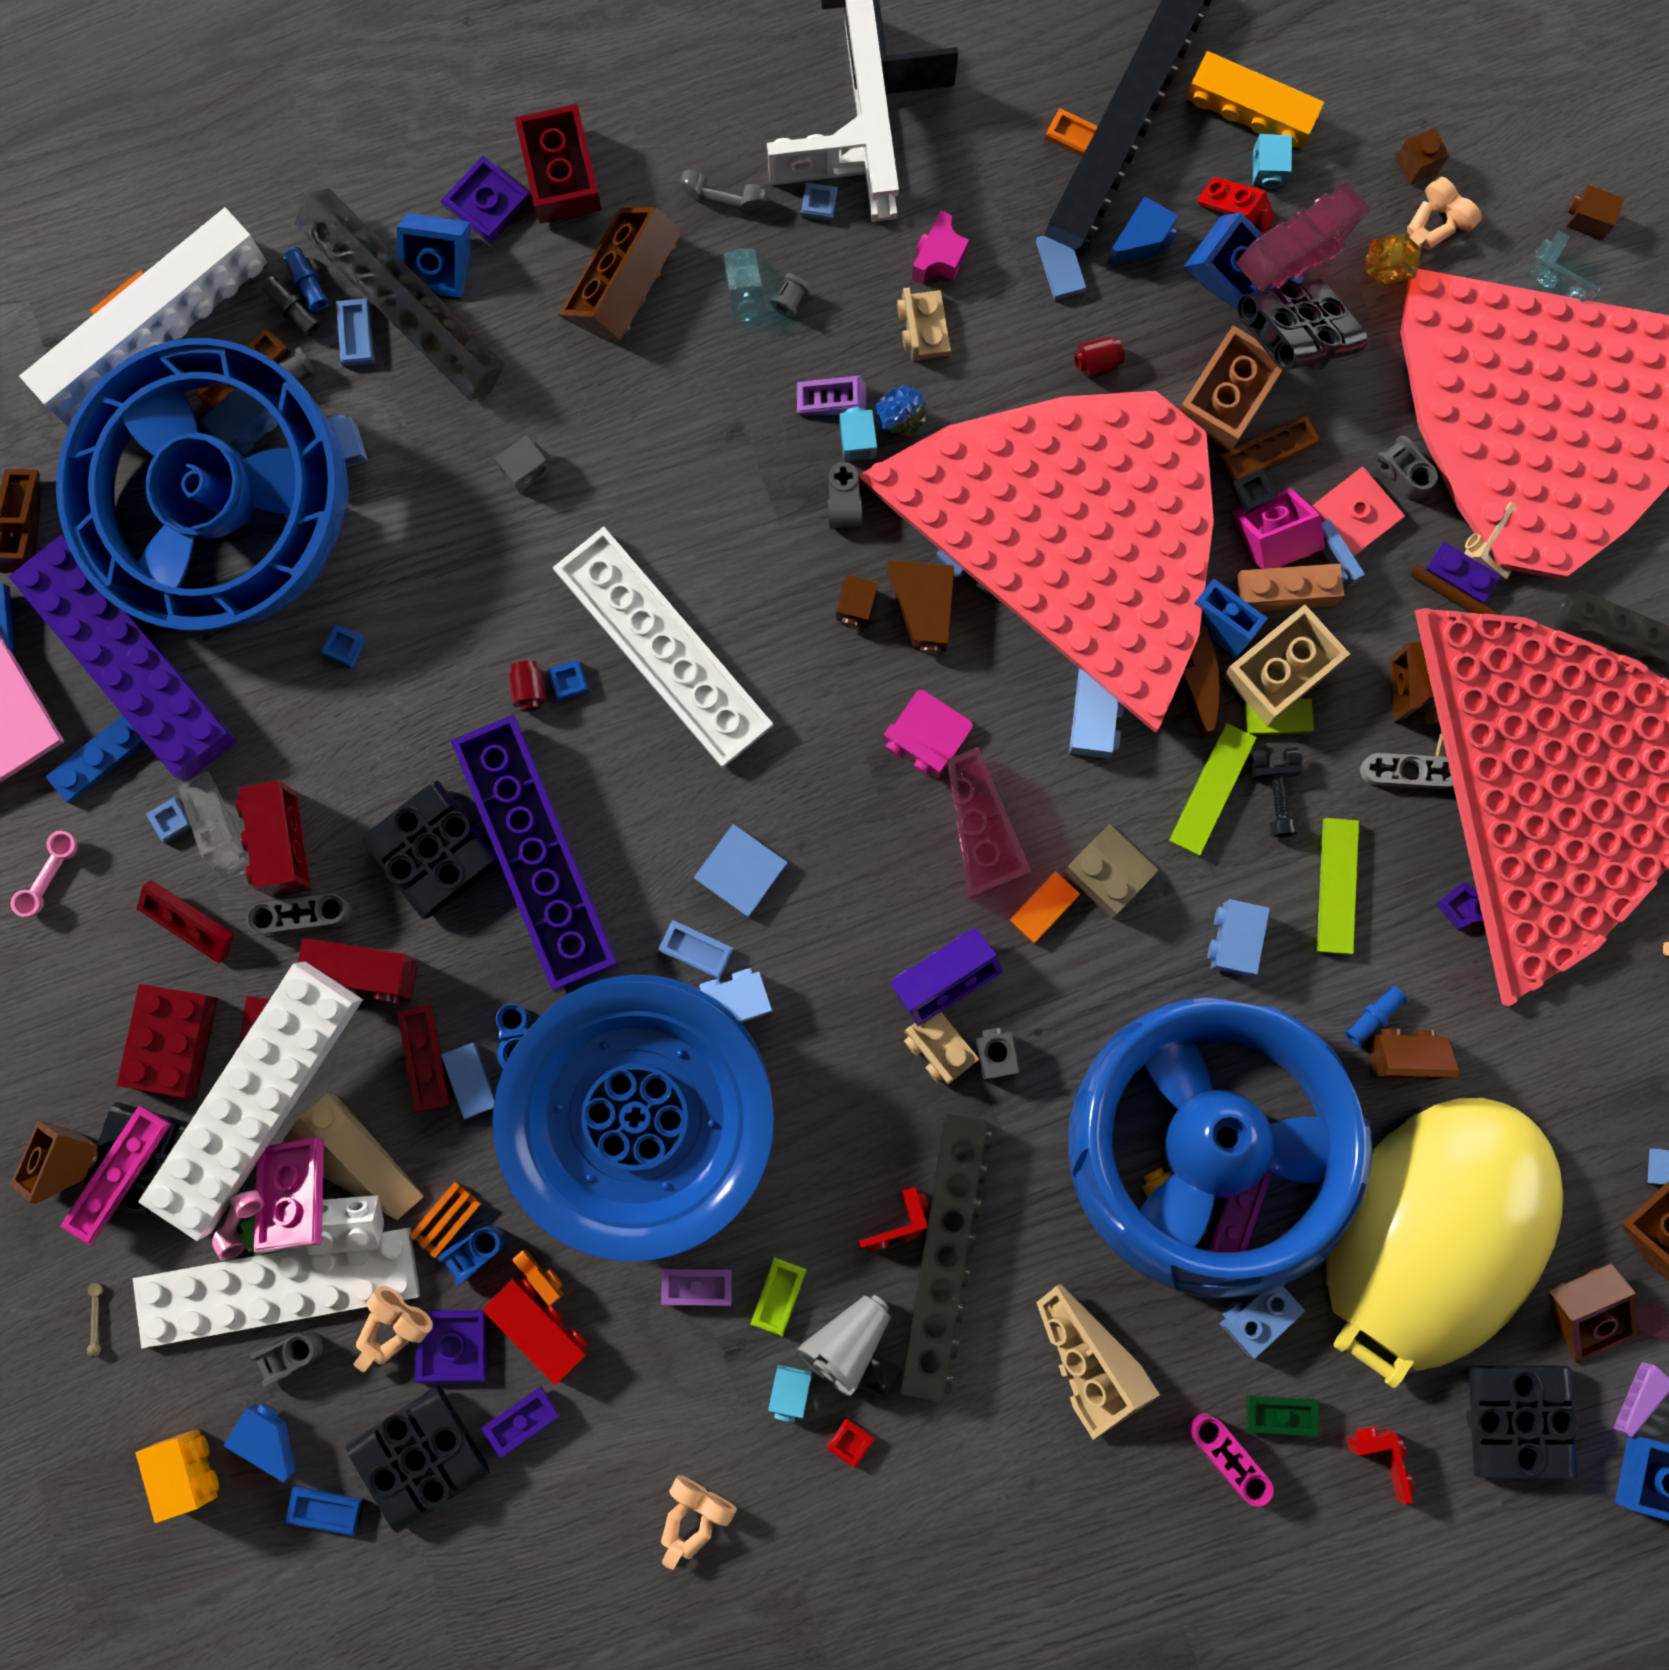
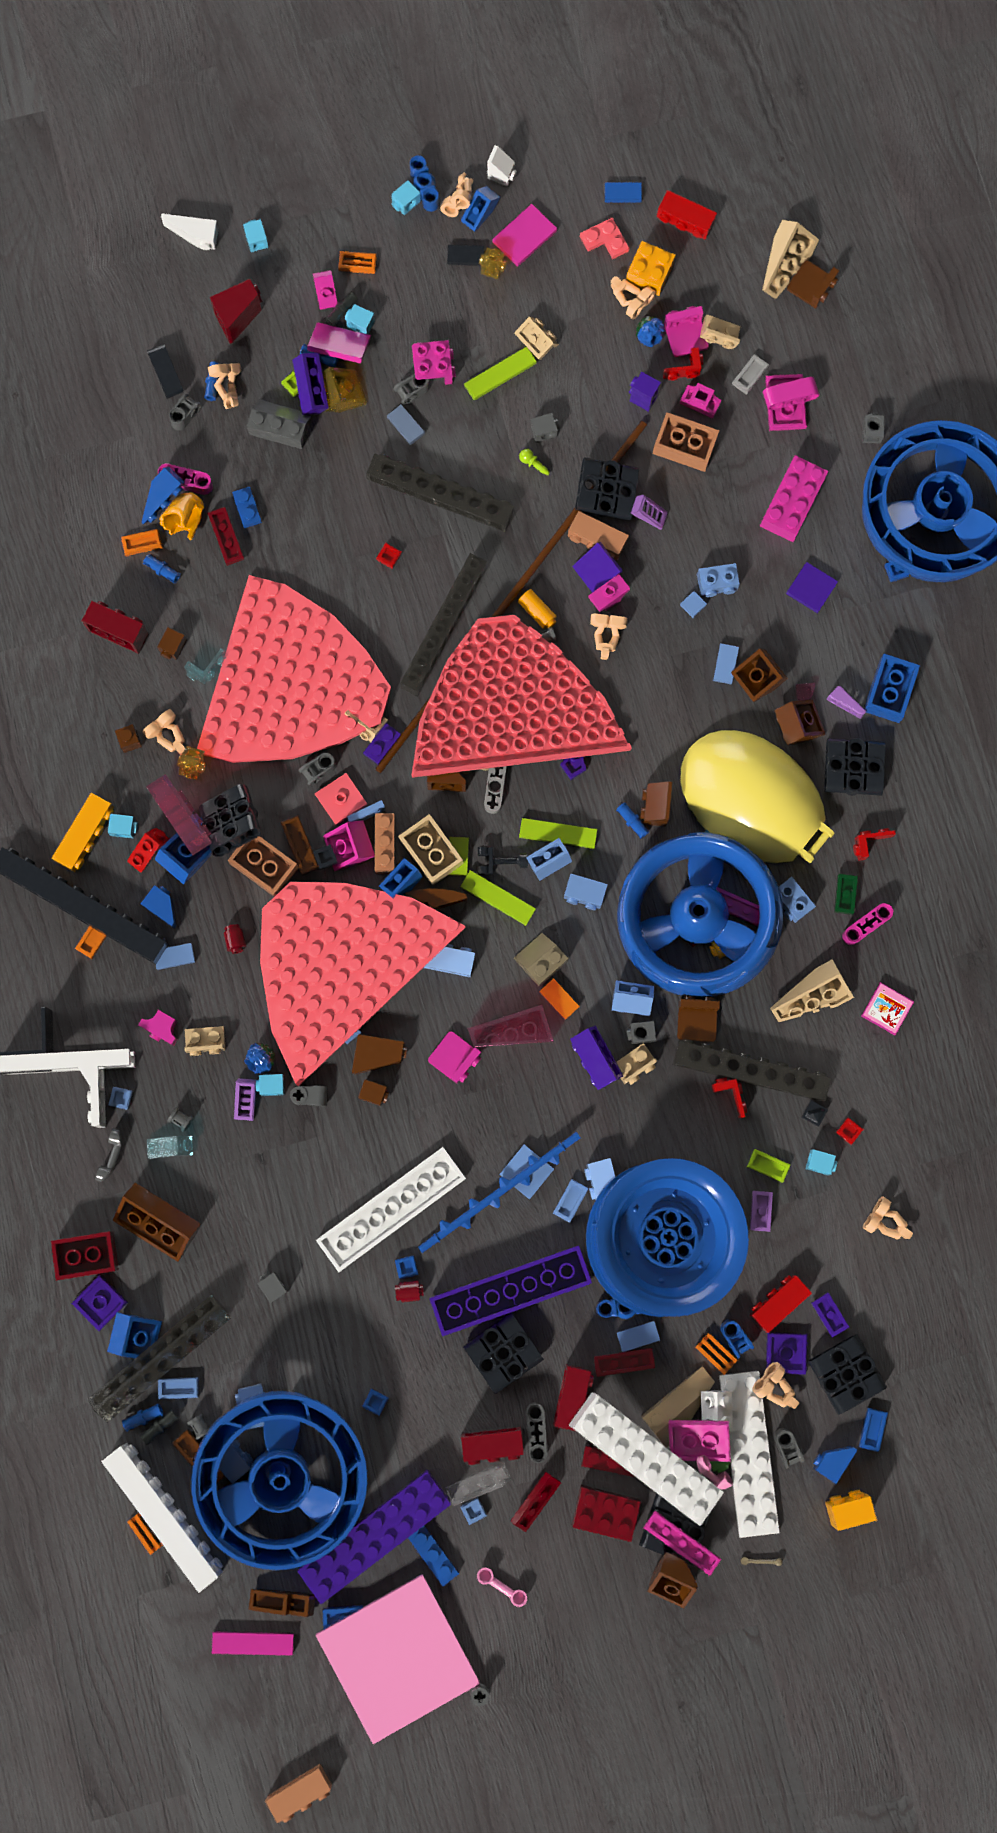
camera: 90 degrees left, 0 degrees up
(544, 1282) = (754, 1297): orange plate -> none
(713, 833) = (493, 1199): none -> blue plant
(847, 1343) = (796, 1128): light grey cone -> none
(1029, 1153) = (697, 1019): none -> reddish brown bracket
(1057, 1033) = (632, 998): none -> medium blue brick
(1077, 1504) = (887, 1008): none -> tile
(1290, 870) = (549, 859): none -> medium blue brick
(1614, 114) = (115, 626): none -> dark red brick

